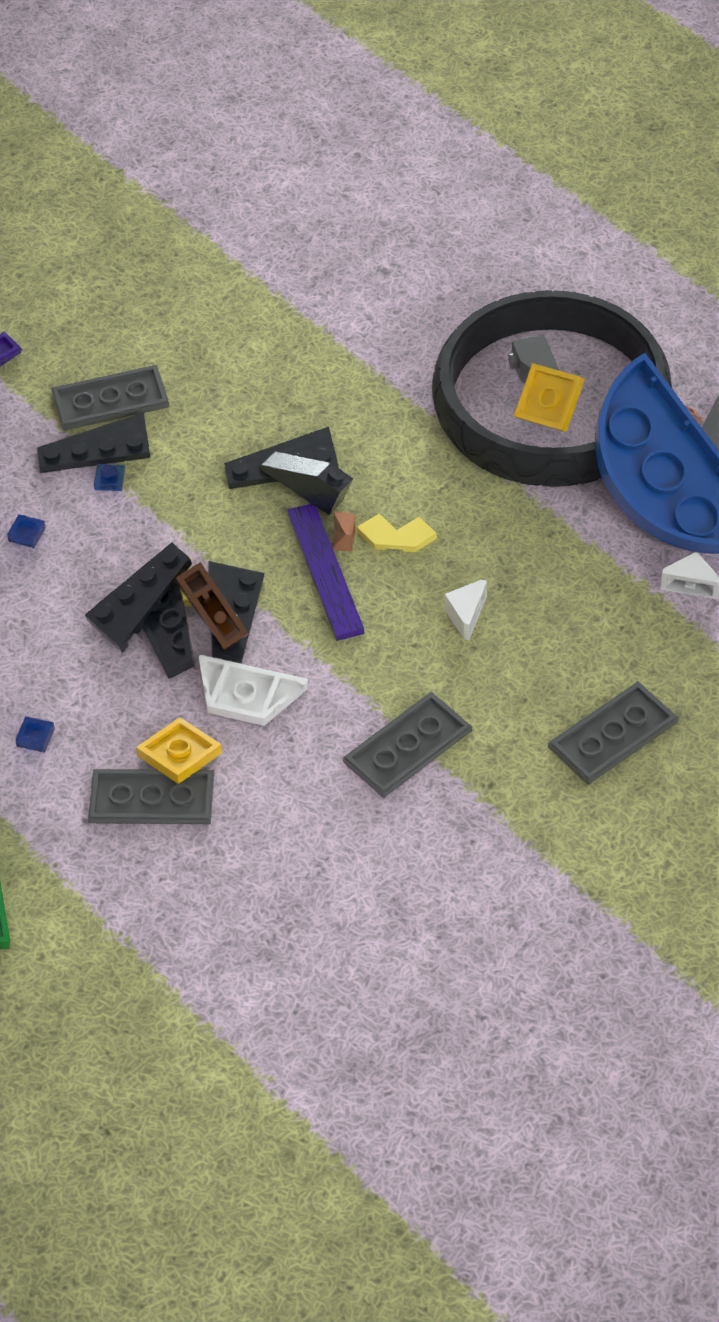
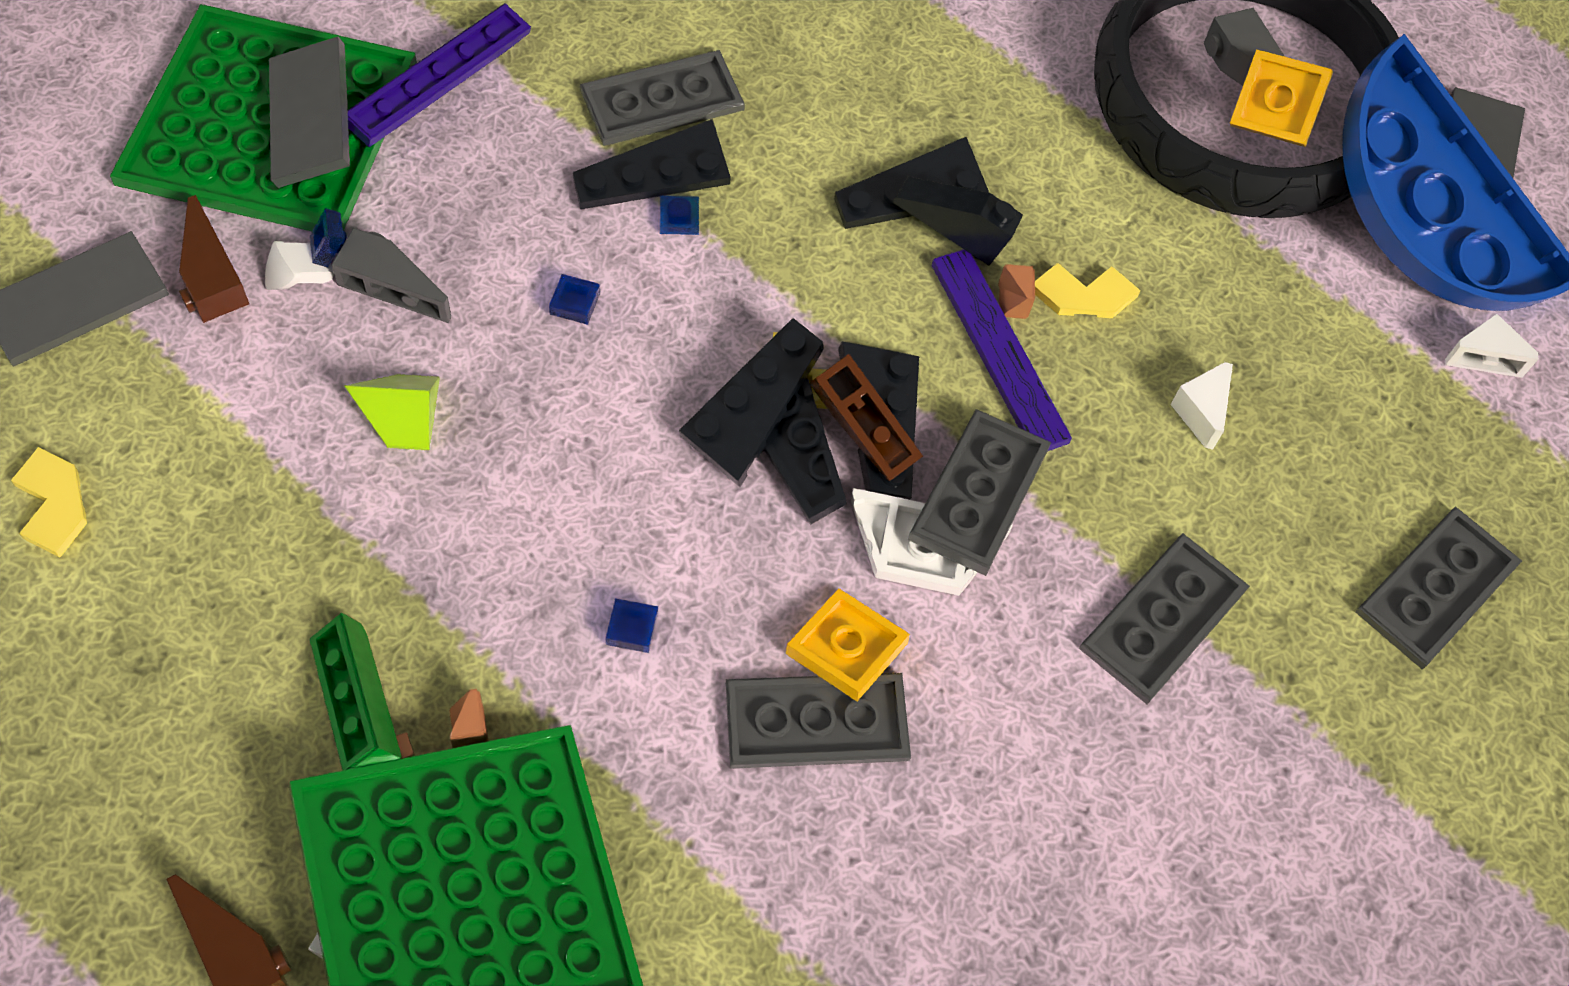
camera: 15 degrees left, 10 degrees up
(288, 658) = (979, 492): none -> dark grey tile

